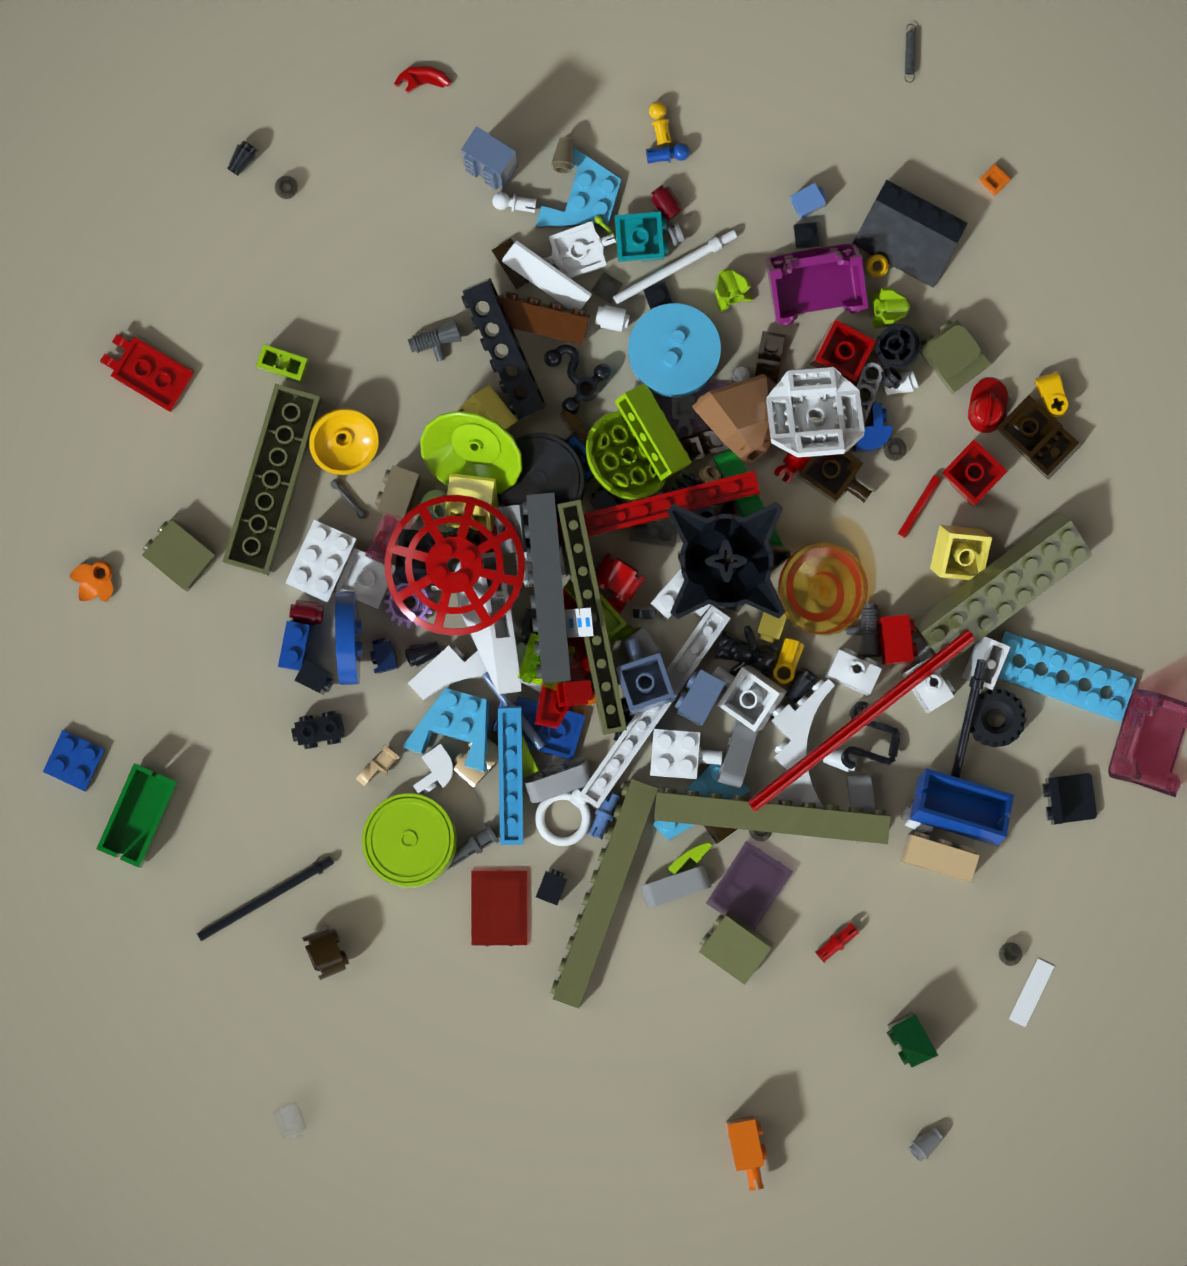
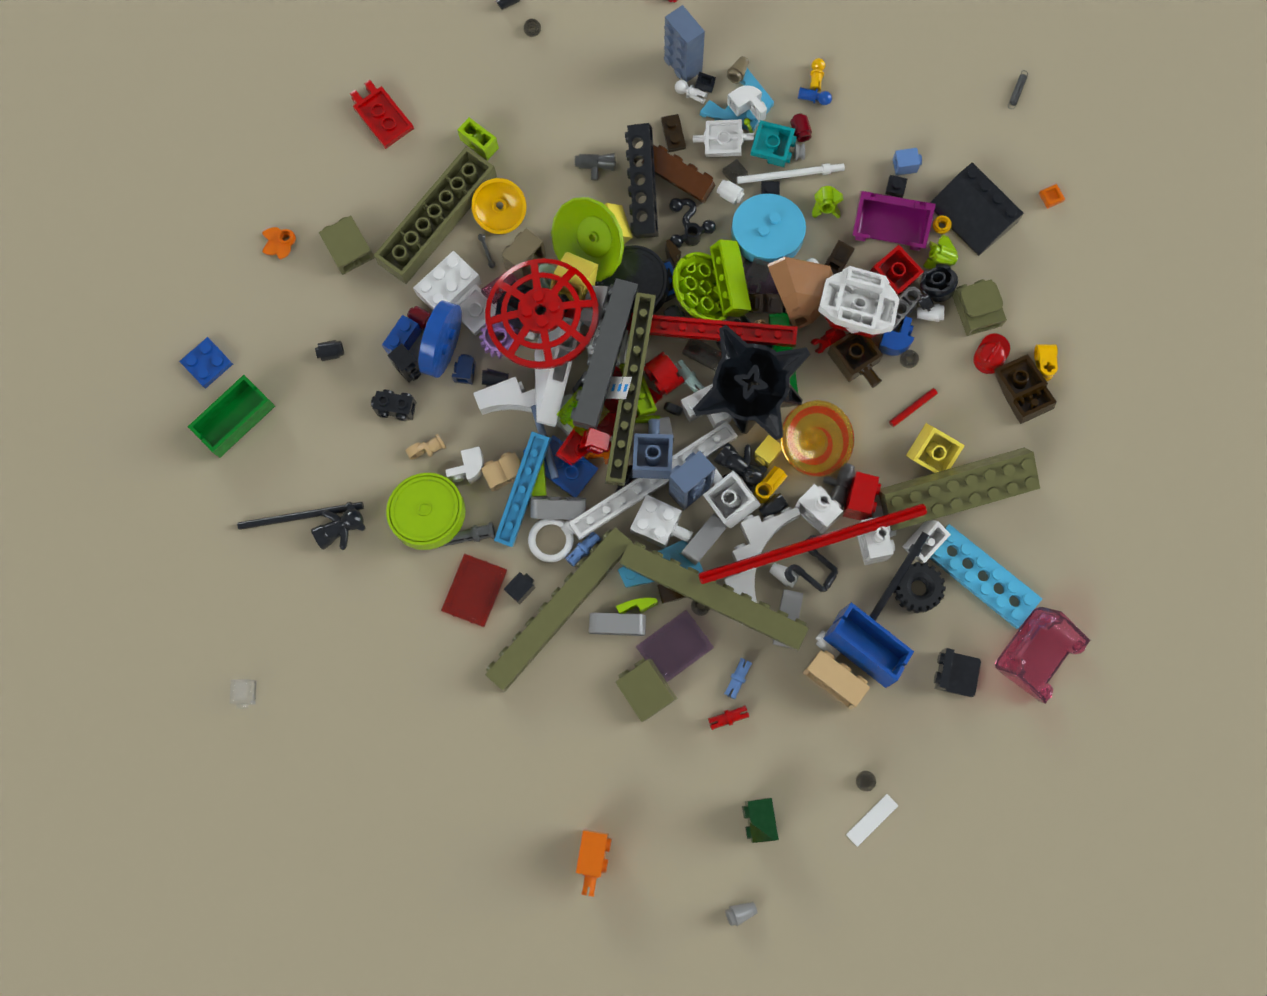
camera: 25 degrees right, 10 degrees down
(215, 692) = (329, 350): none -> black brick
(318, 895) = (339, 527): none -> black piece
(325, 952) = (325, 571): dark brown brick -> none
(457, 717) = (499, 432): medium azure wing -> none
(528, 184) = (705, 82): none -> black plate
(546, 276) = (693, 144): white slope -> none
(588, 193) = (746, 99): none -> white brick
(648, 568) = (688, 376): none -> light aqua pin
(831, 895) = (738, 678): none -> medium blue pin
(974, 472) = (966, 395): red slope -> none

